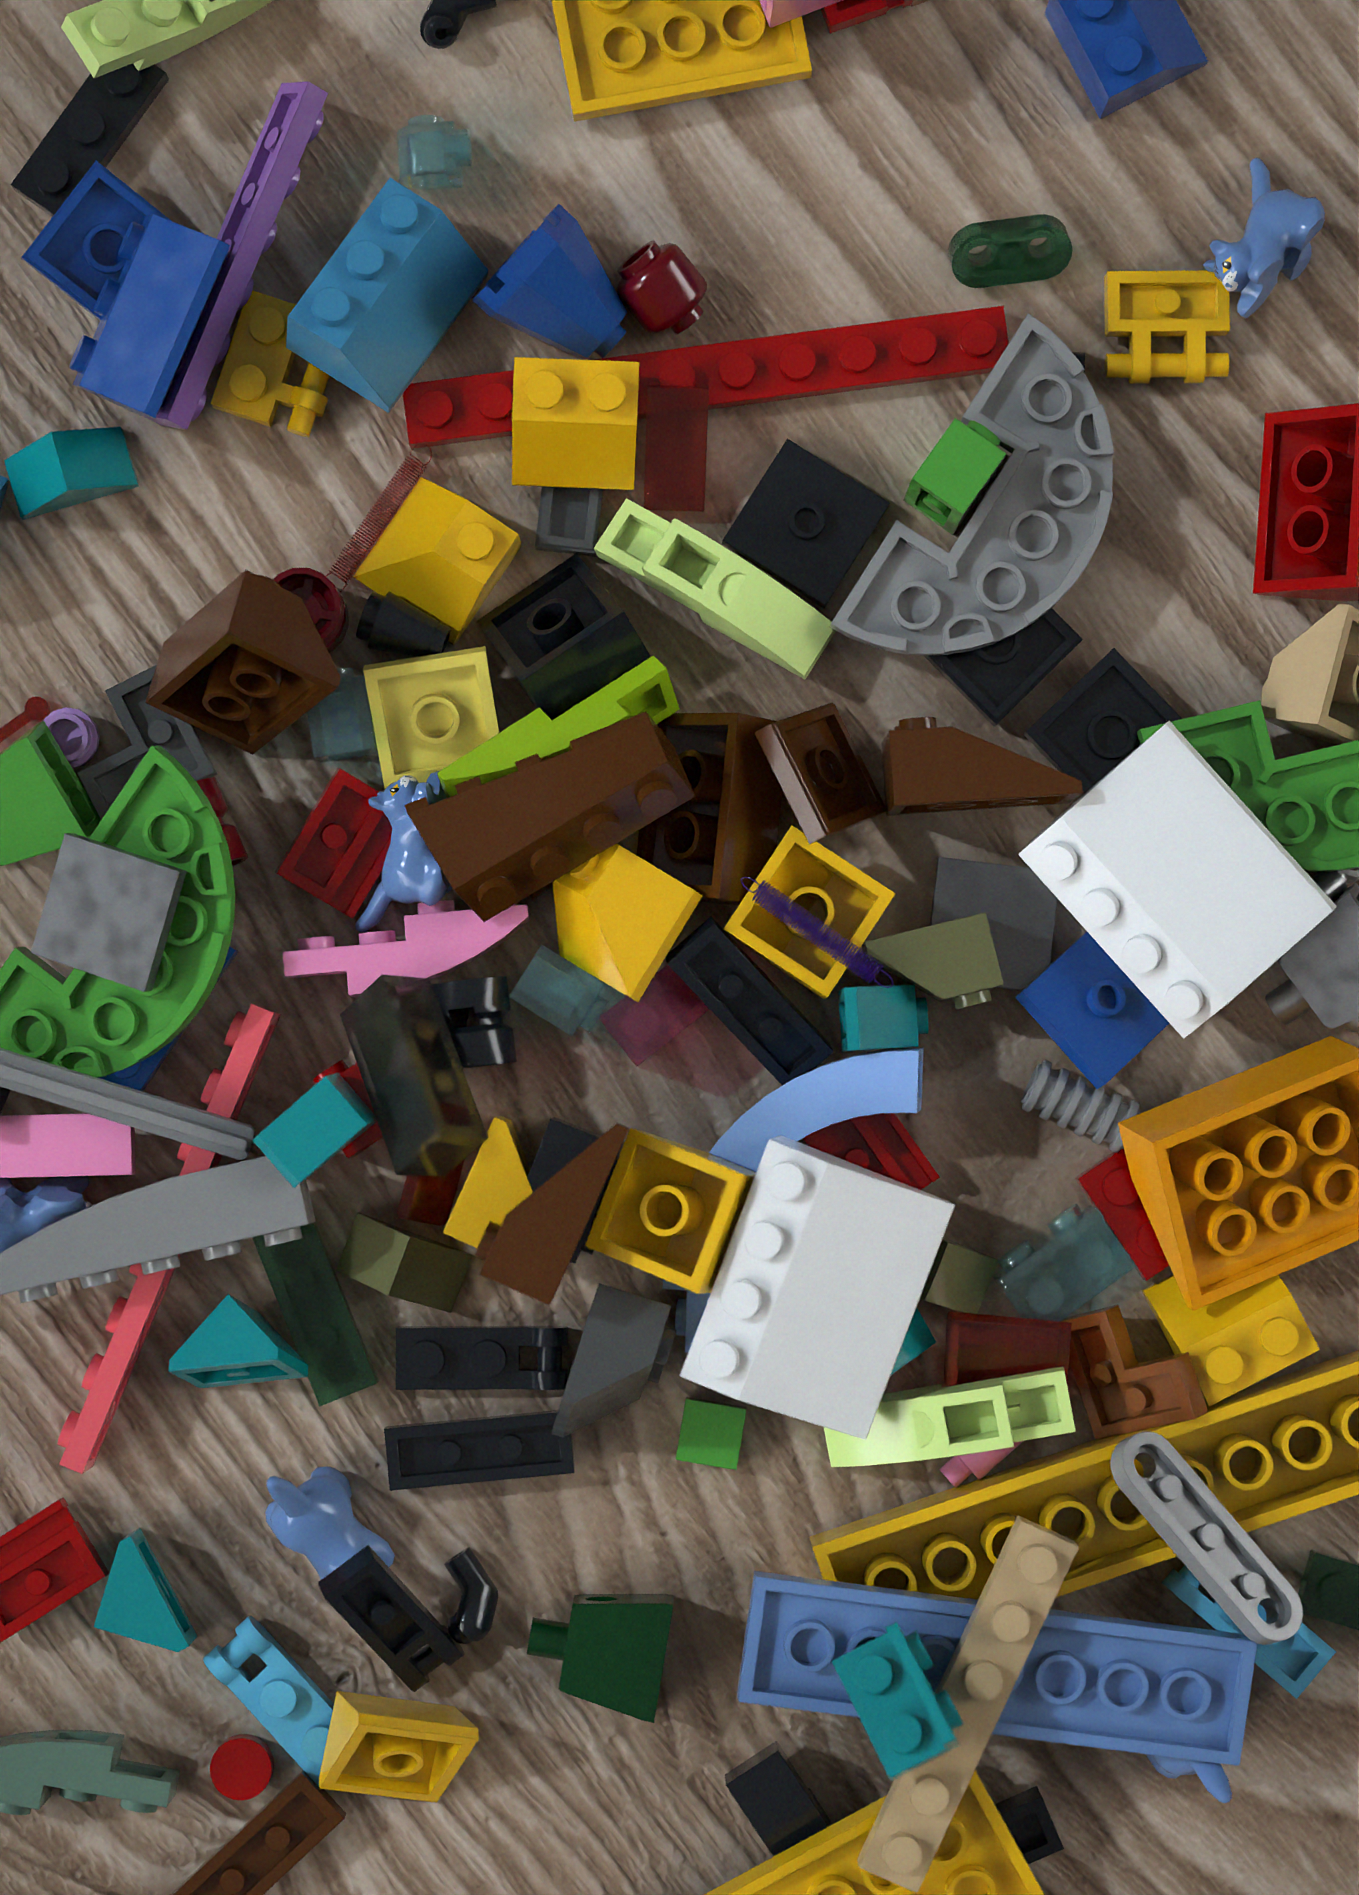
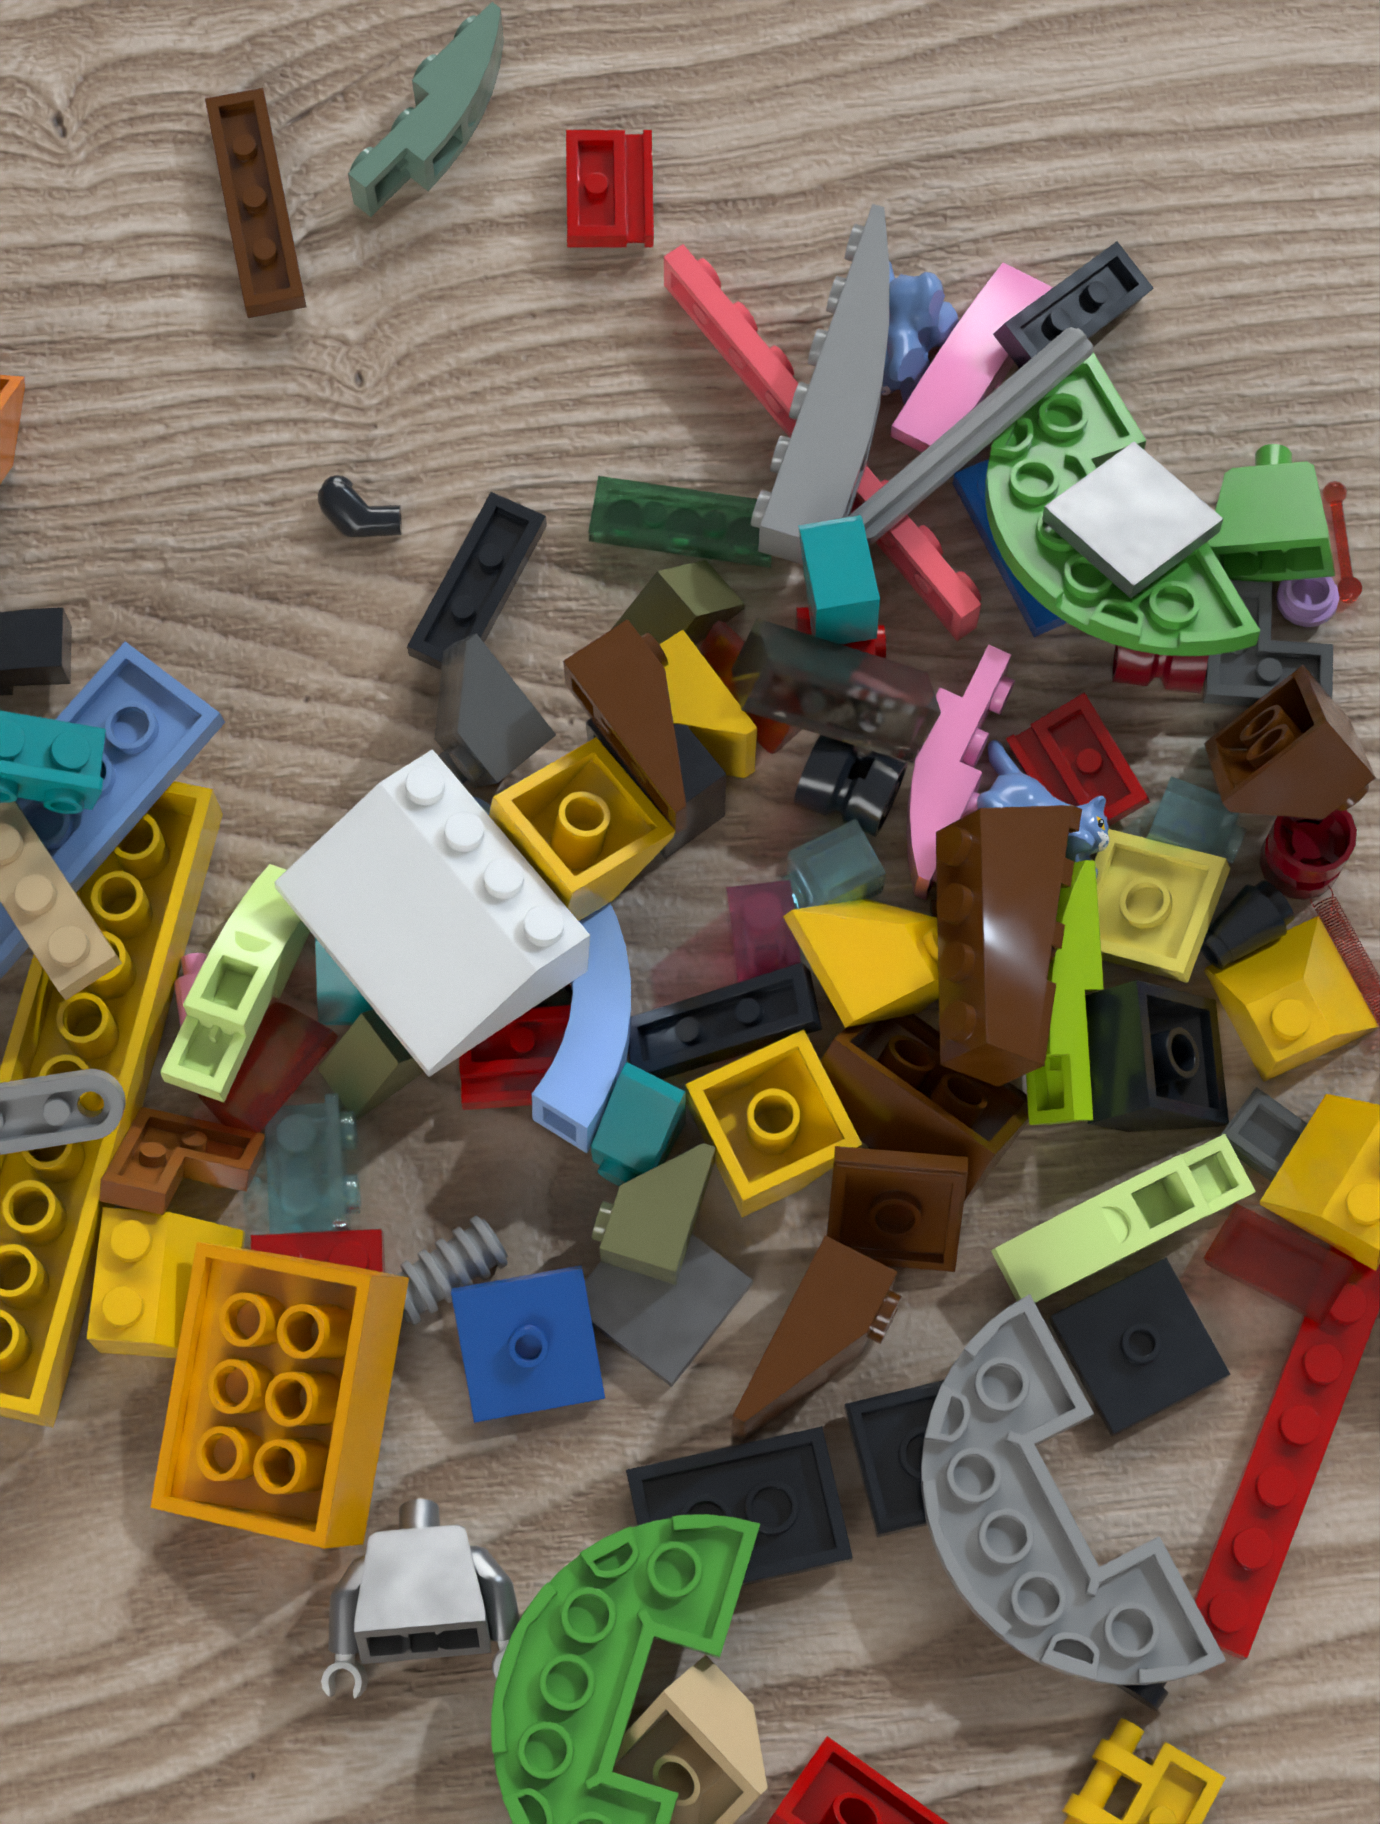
camera: 125 degrees right, 15 degrees down
(141, 1600) = (528, 255): teal slope -> none
(234, 1349) = (692, 440): teal slope -> none
(242, 1767) = (340, 260): red tile -> none
(278, 1696) = (372, 322): medium azure plate -> none
(320, 1520) = (496, 424): medium blue animal -> none
(389, 1618) = (384, 424): black plate -> none
(394, 1747) = (278, 377): yellow slope -> none
(478, 1357) = (561, 624): black plate -> none
(610, 1649) = (237, 592): dark green torso -> none
(711, 1433) = (357, 775): bright green tile -> none
(805, 925) = (807, 1076): dark purple piece -> none
(955, 474) = (1108, 1497): bright green brick -> none
(1008, 253) = (1296, 1696): clear green plate -> none
(1177, 880) = (597, 1469): white slope -> none

